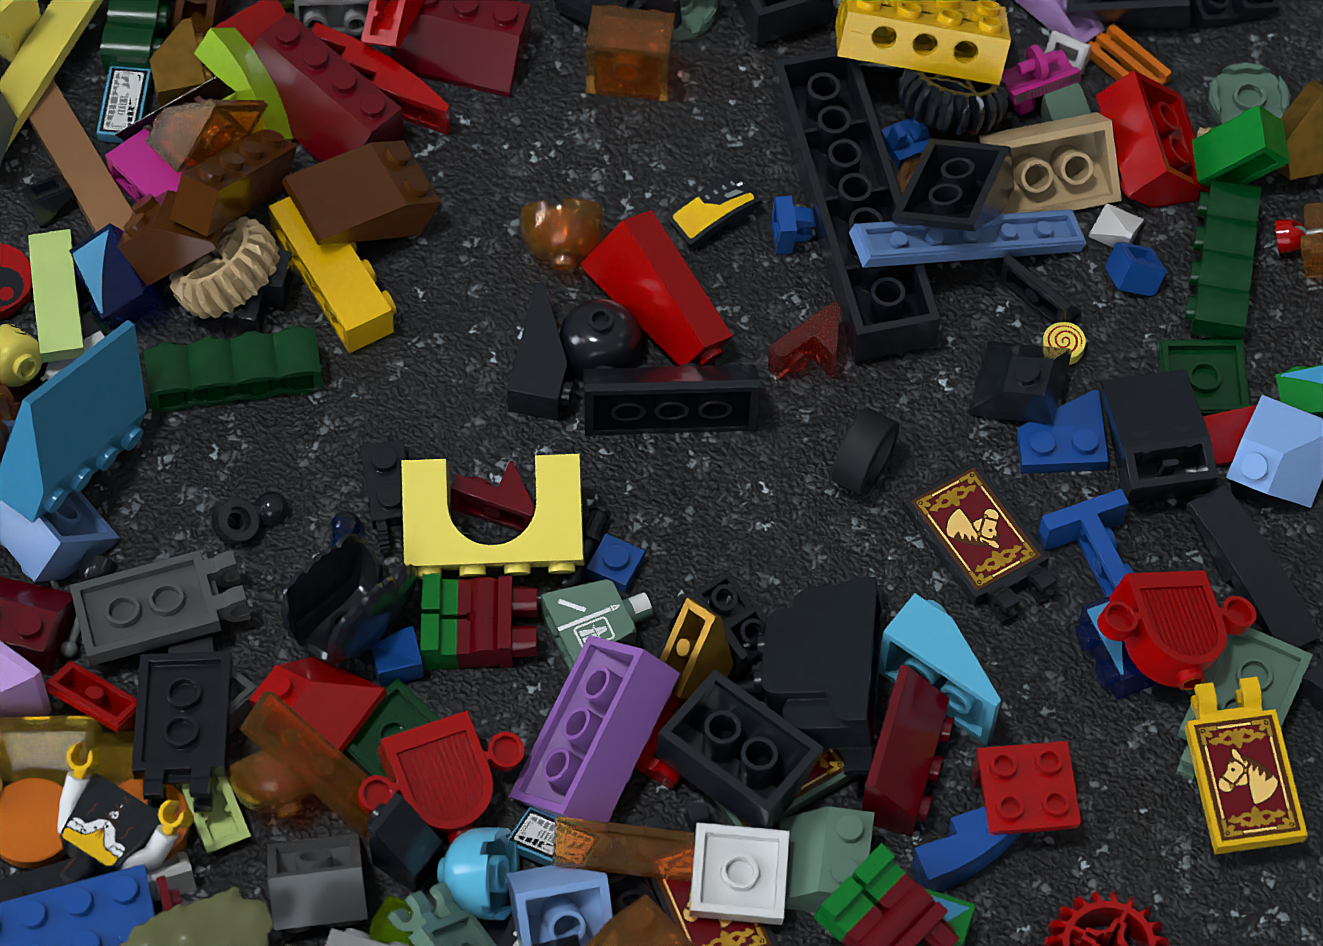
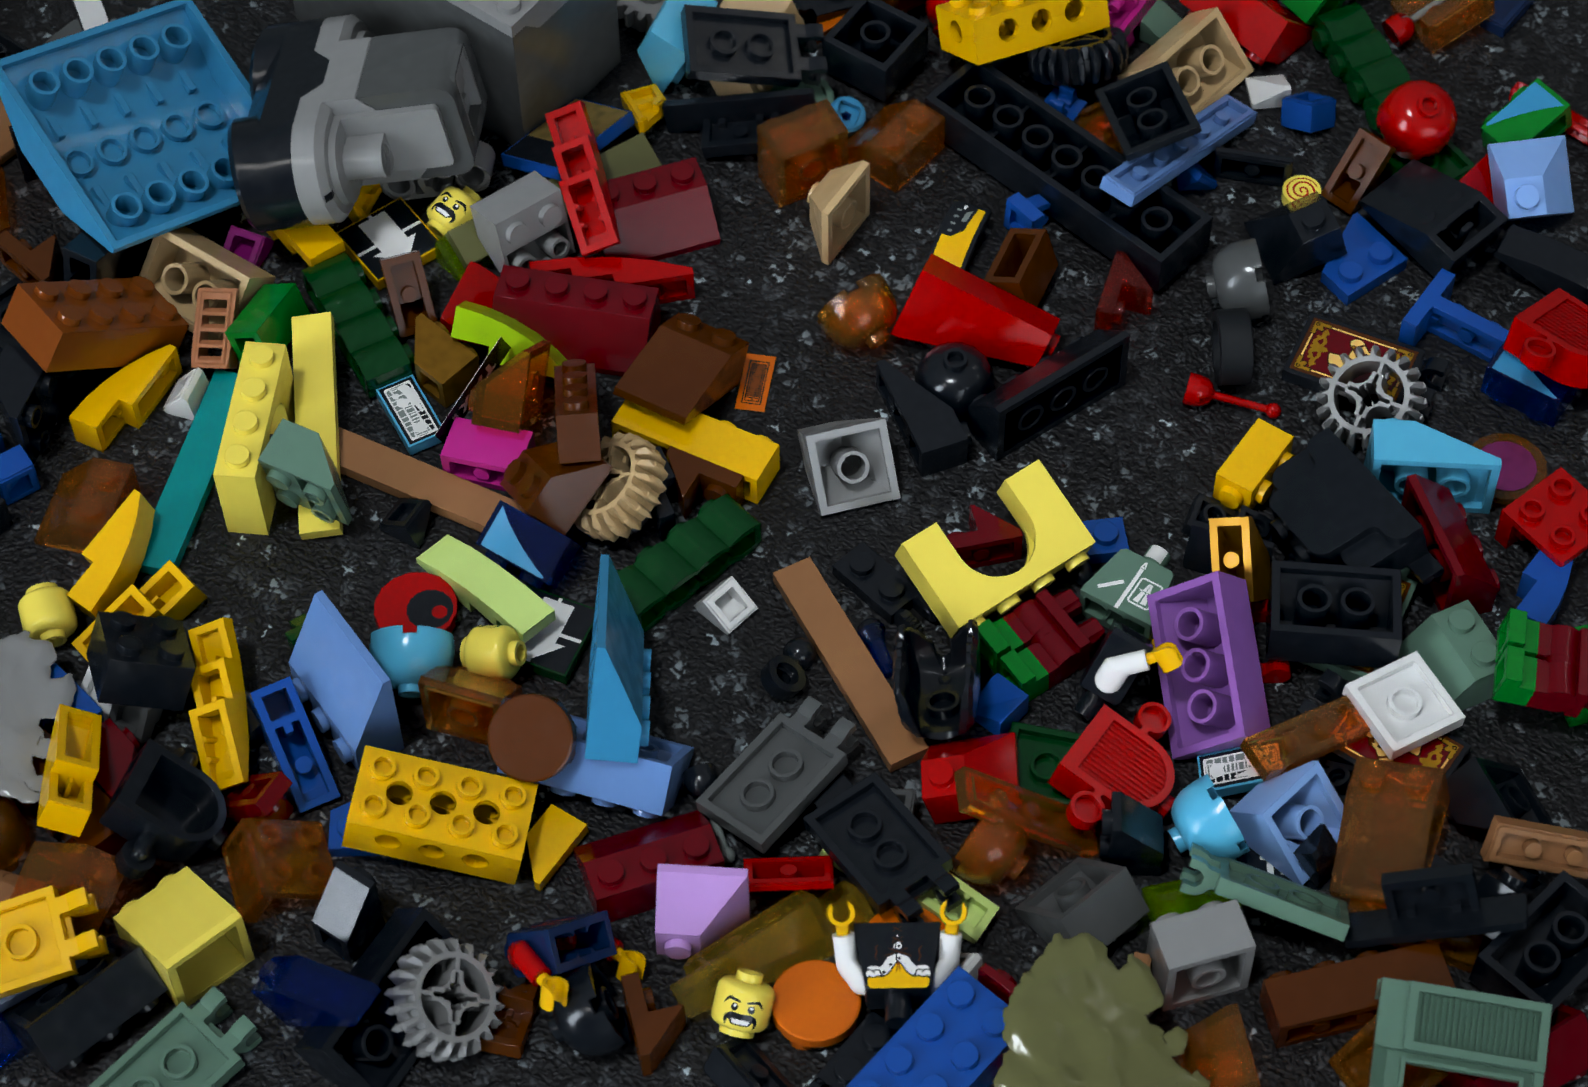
camera: 30 degrees left, 5 degrees down
(246, 429) = (726, 605): none -> white slope
(304, 301) = (702, 479): none -> reddish brown slope
(307, 524) = (848, 662): none -> medium nougat tile
(435, 242) = (755, 382): none -> sticker
(442, 362) = (849, 464): none -> light grey slope
(515, 679) = (1116, 665): none -> torso
(622, 124) = (839, 207): none -> tan slope
(708, 39) = (850, 112): none -> dark azure tile
(730, 91) = (898, 142): none -> clear orange slope
(738, 270) = (1024, 264): none -> reddish brown brick
(782, 574) = (1249, 469): none -> yellow brick
(811, 475) = (1201, 392): none -> red hinge
(925, 393) = (1239, 279): none -> dark grey cylinder
(979, 273) = (1196, 179): none -> blue slope
(980, 558) = (1377, 384): none -> light grey gear
(1034, 709) = (1521, 465): none -> tile
(1127, 350) = (1358, 171): none -> reddish brown slope
(1218, 333) = (1417, 119): none -> red cylinder

